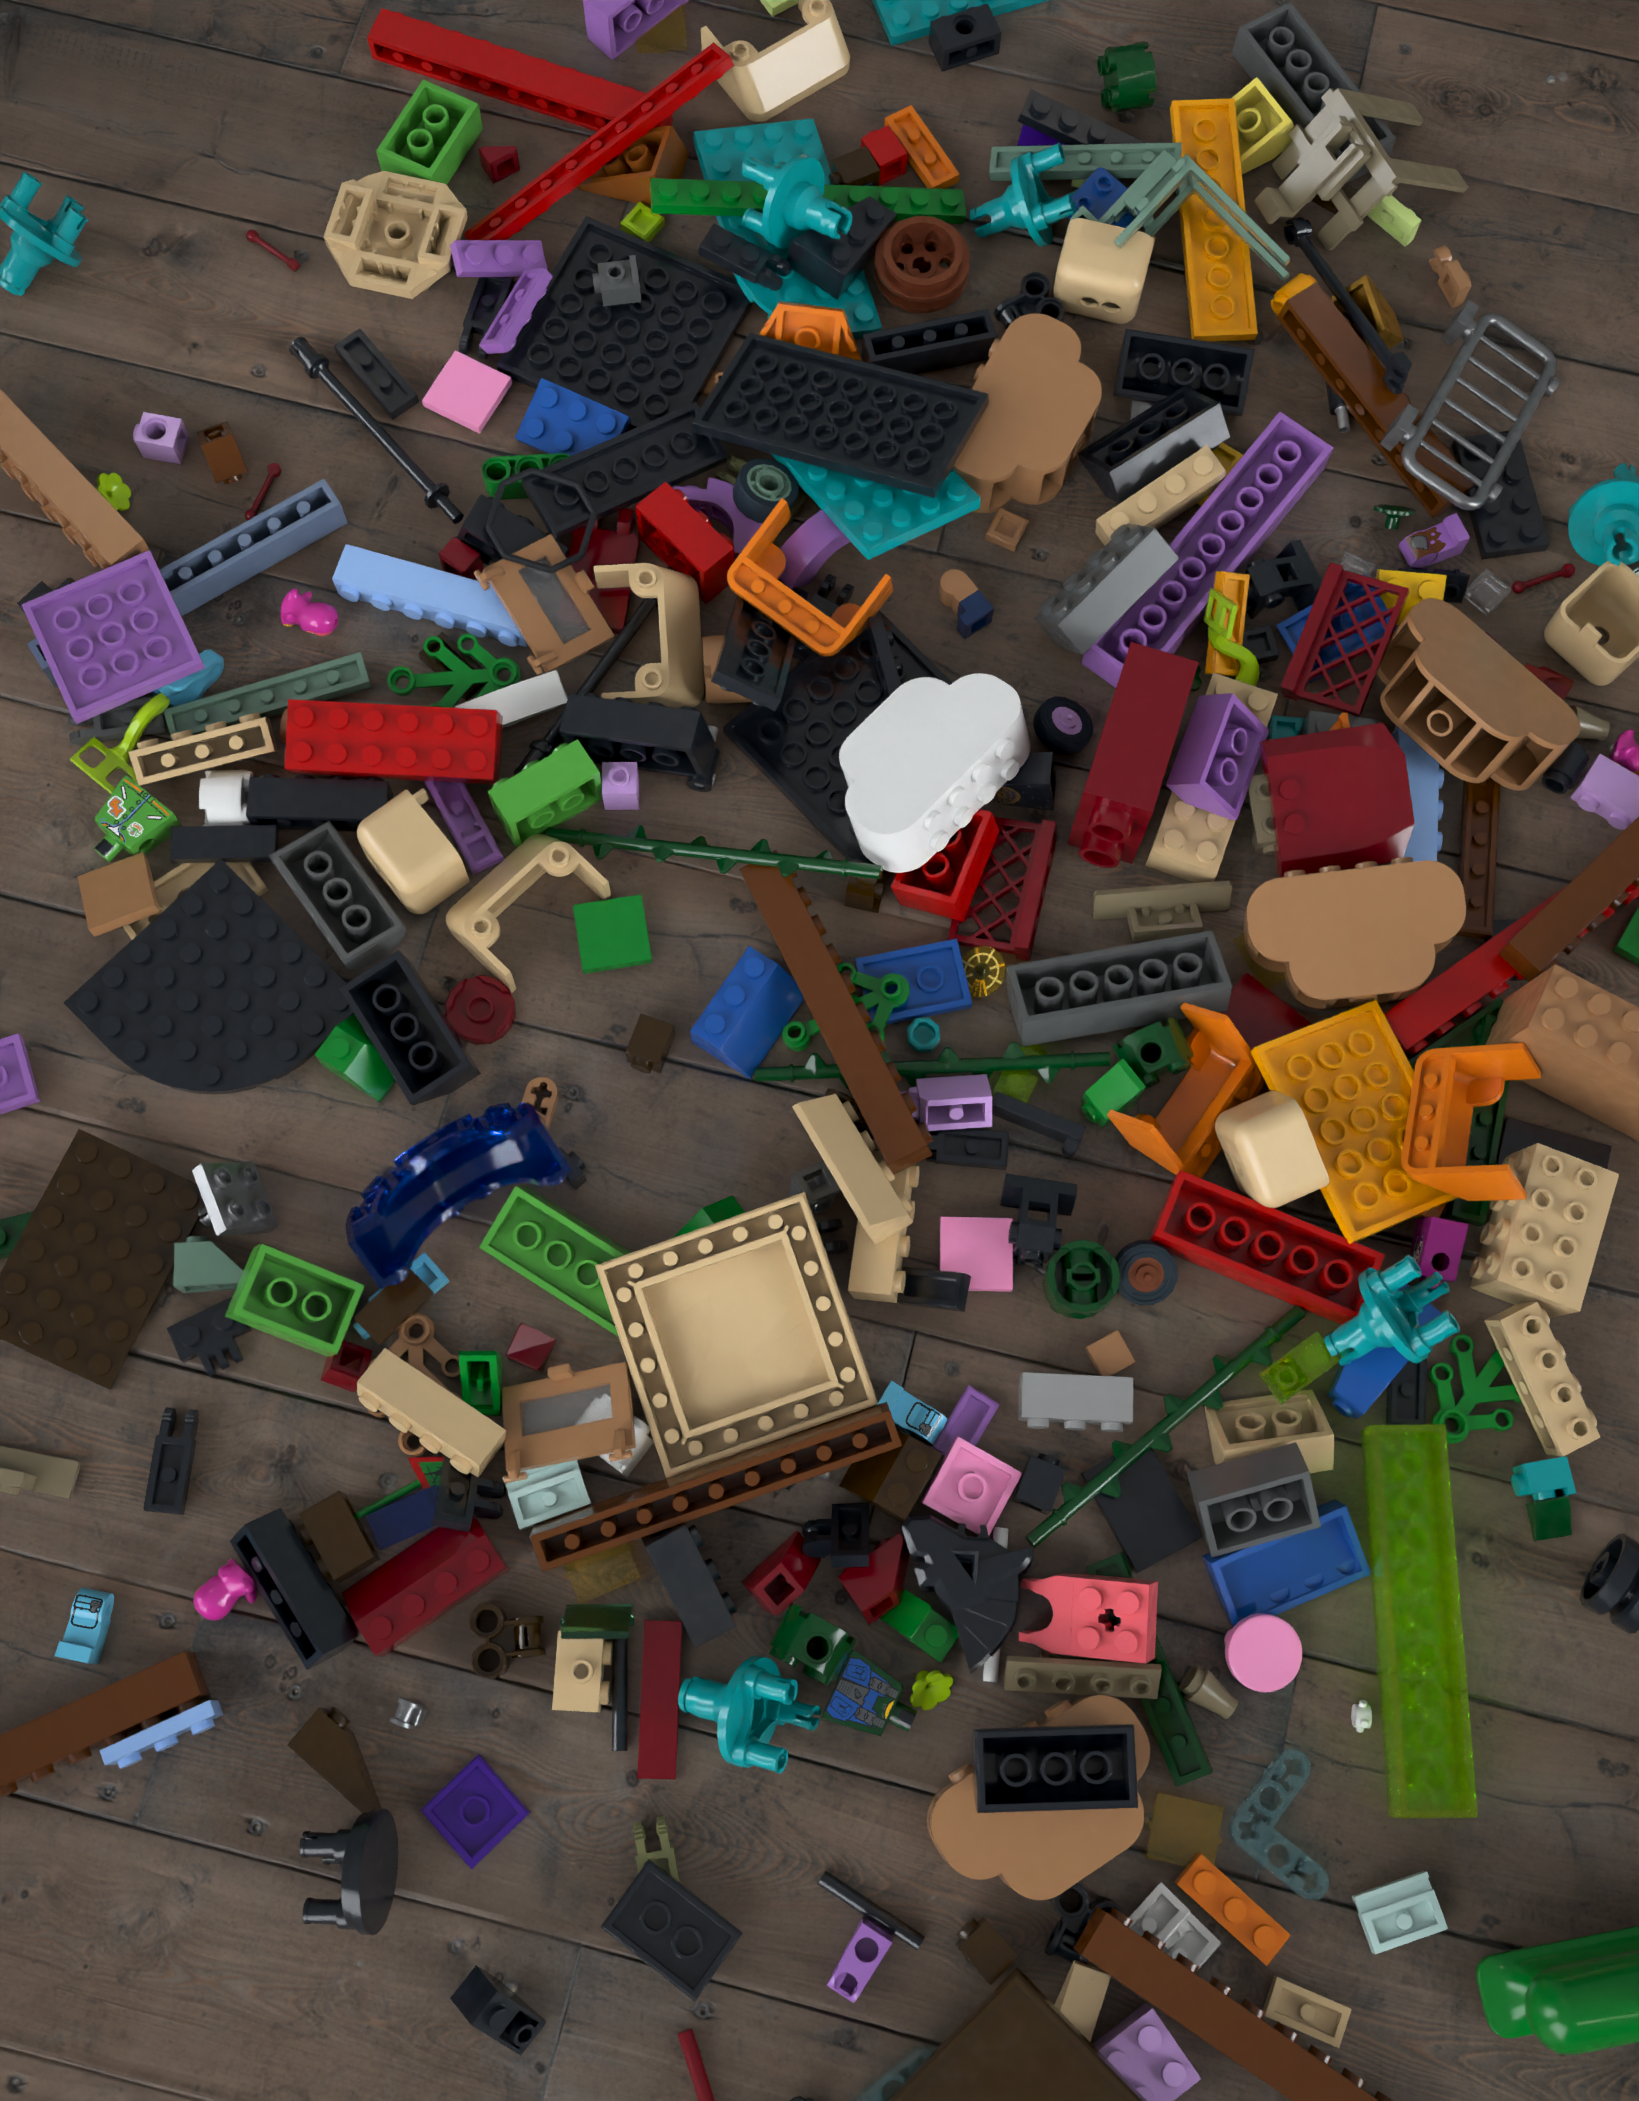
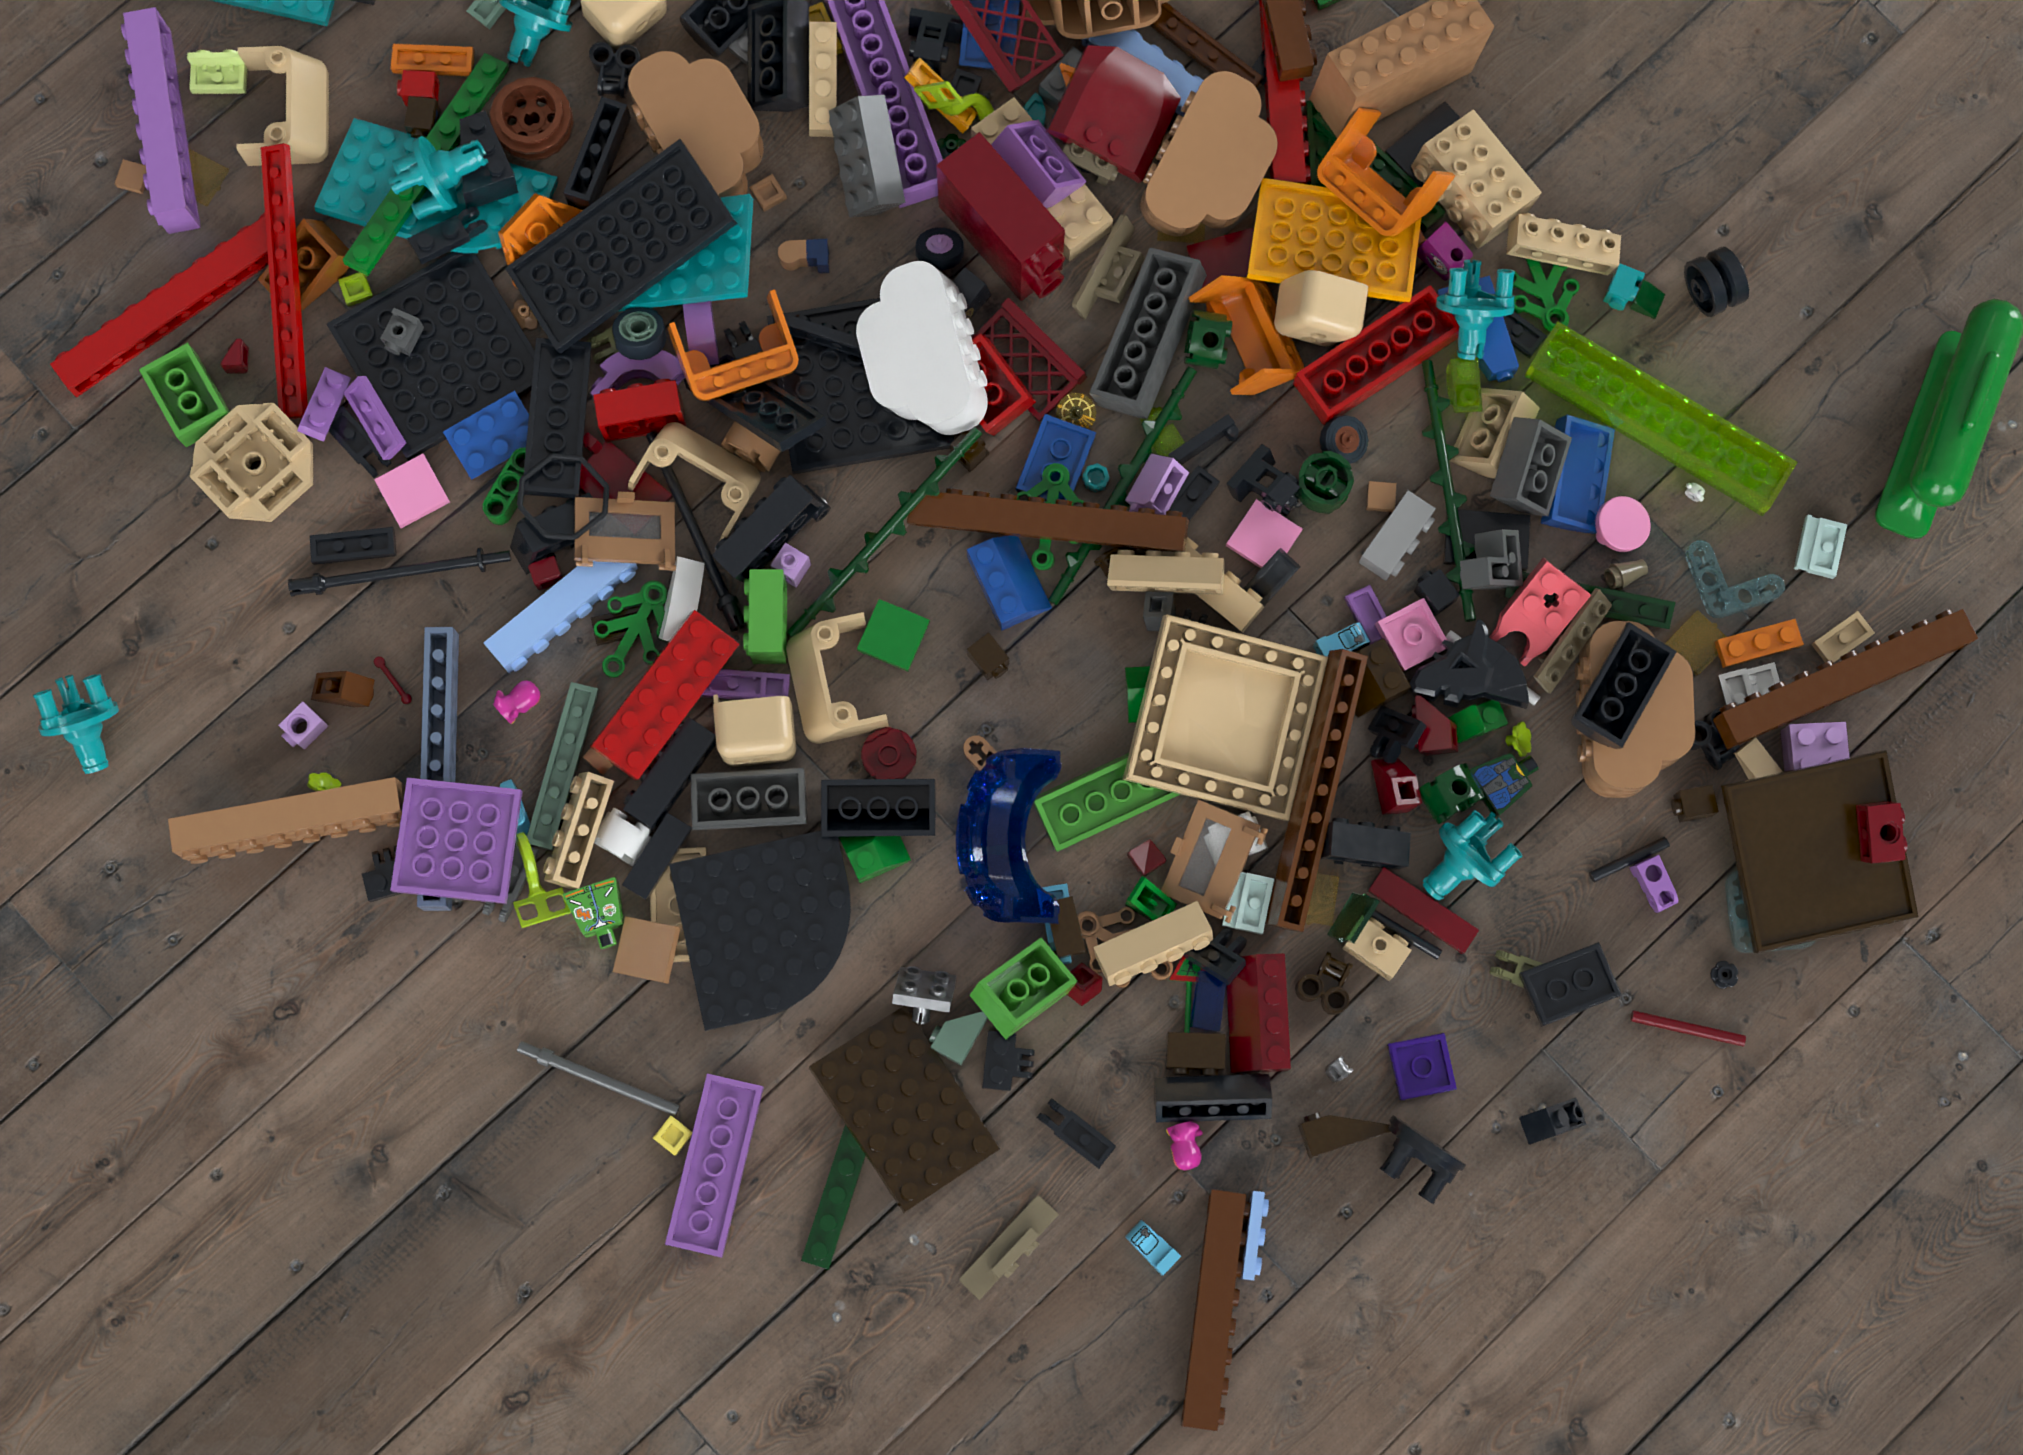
camera: 55 degrees left, 5 degrees up
(253, 236) = (173, 568): dark red hinge -> none
(1115, 1091) = (1216, 383): green slope -> none
(1115, 1530) = (1496, 562): none -> dark grey brick

